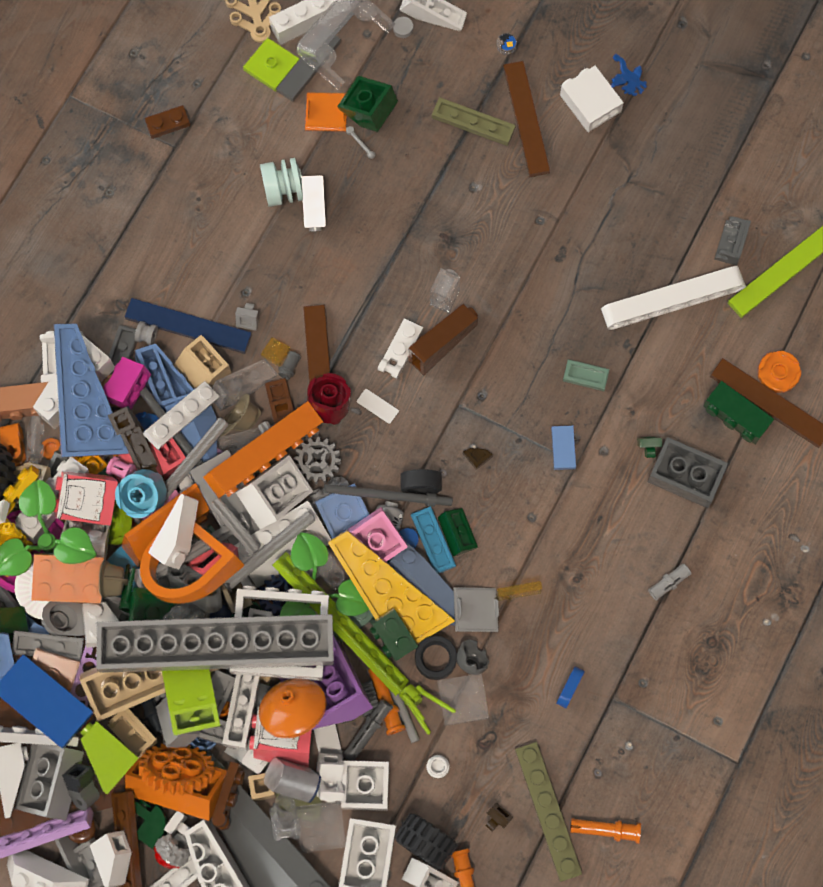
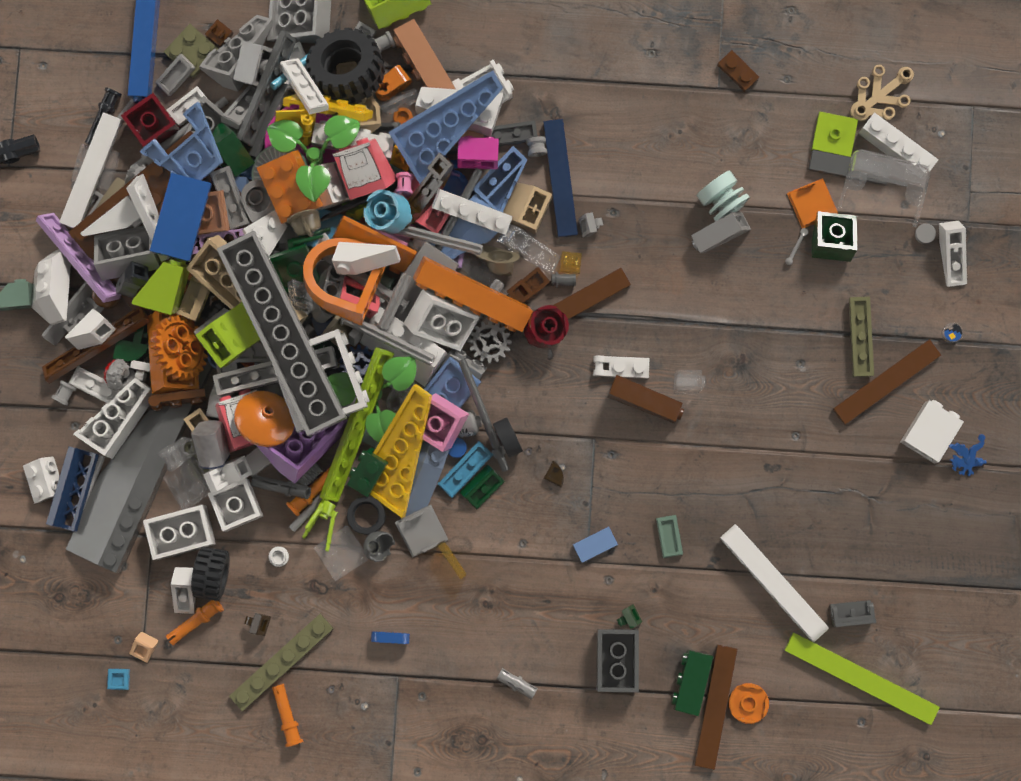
camera: 65 degrees right, 10 degrees up
(115, 528) = (352, 204): none -> black bar
(377, 406) = (562, 370): white sticker -> none

